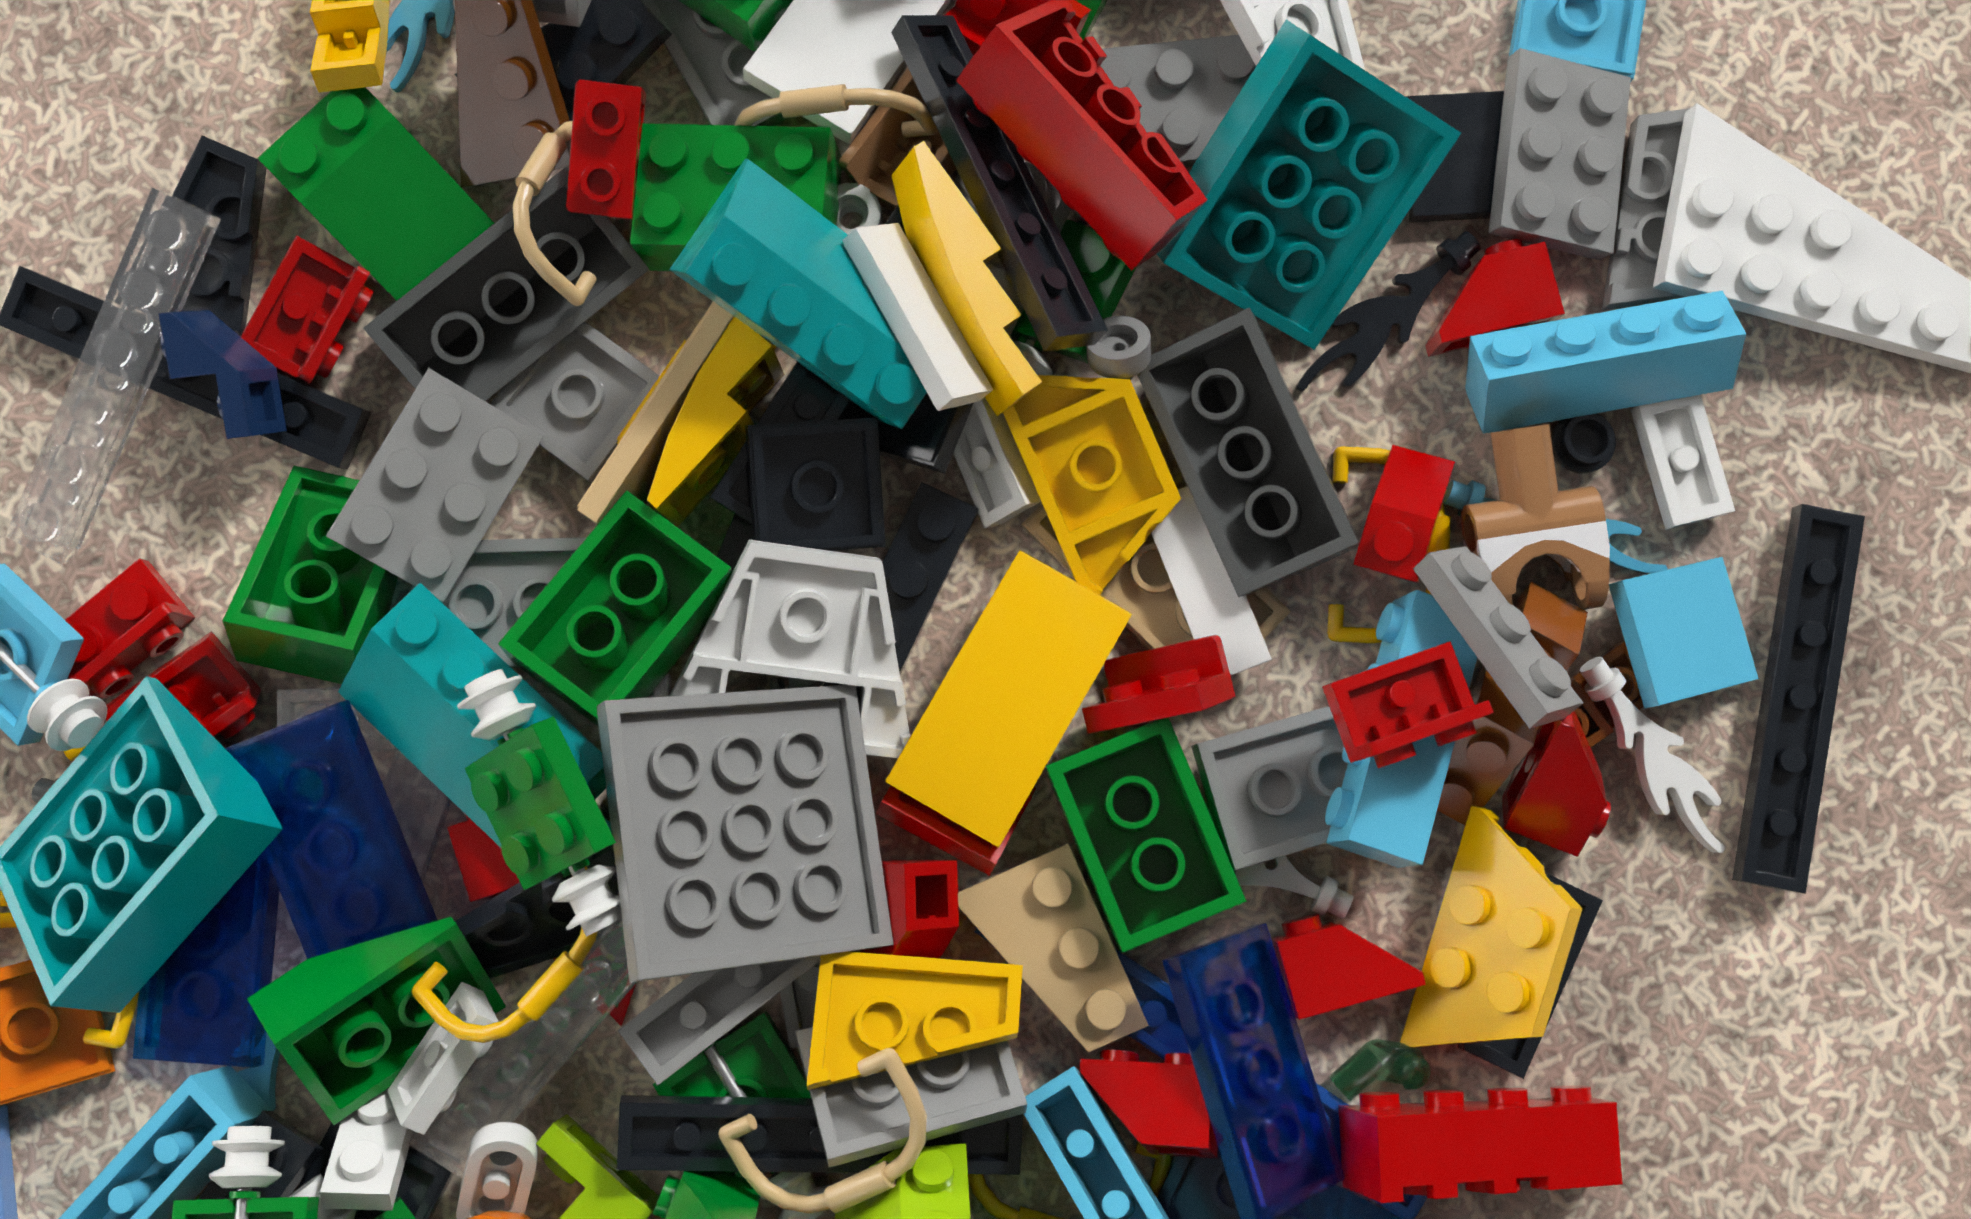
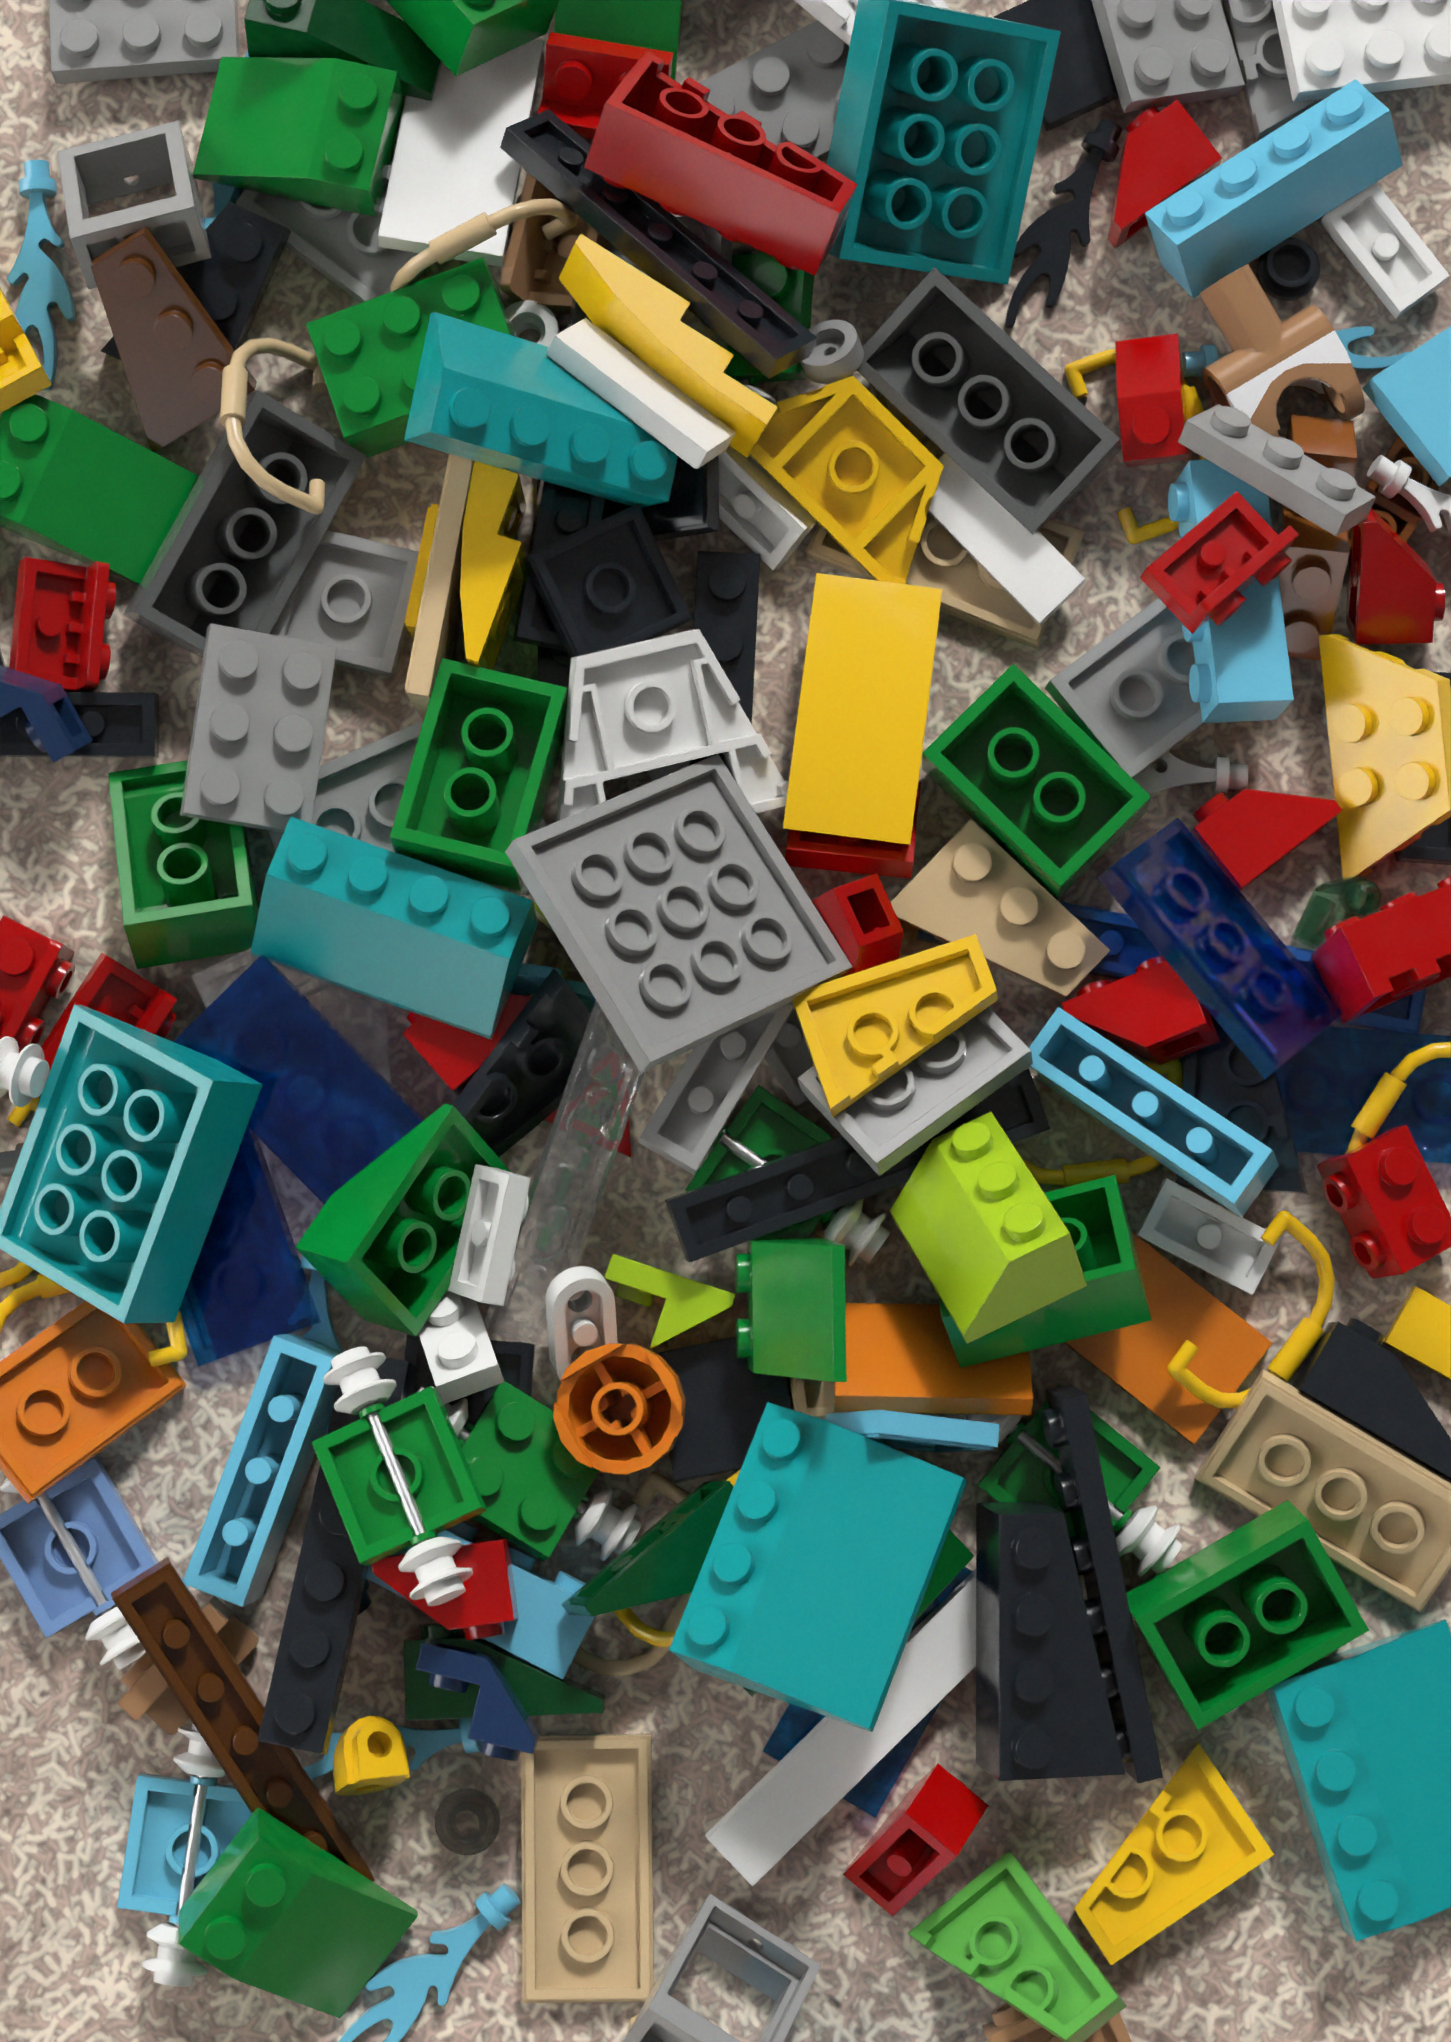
camera: 20 degrees left, 0 degrees up
(531, 1005) = (564, 1118): yellow piece -> none
(539, 802) = (493, 954): green plate -> none
(605, 148) = (287, 360): red bracket -> none
(858, 1186) = (912, 1182): tan piece -> none
(1162, 684) = (995, 639): red bracket -> none

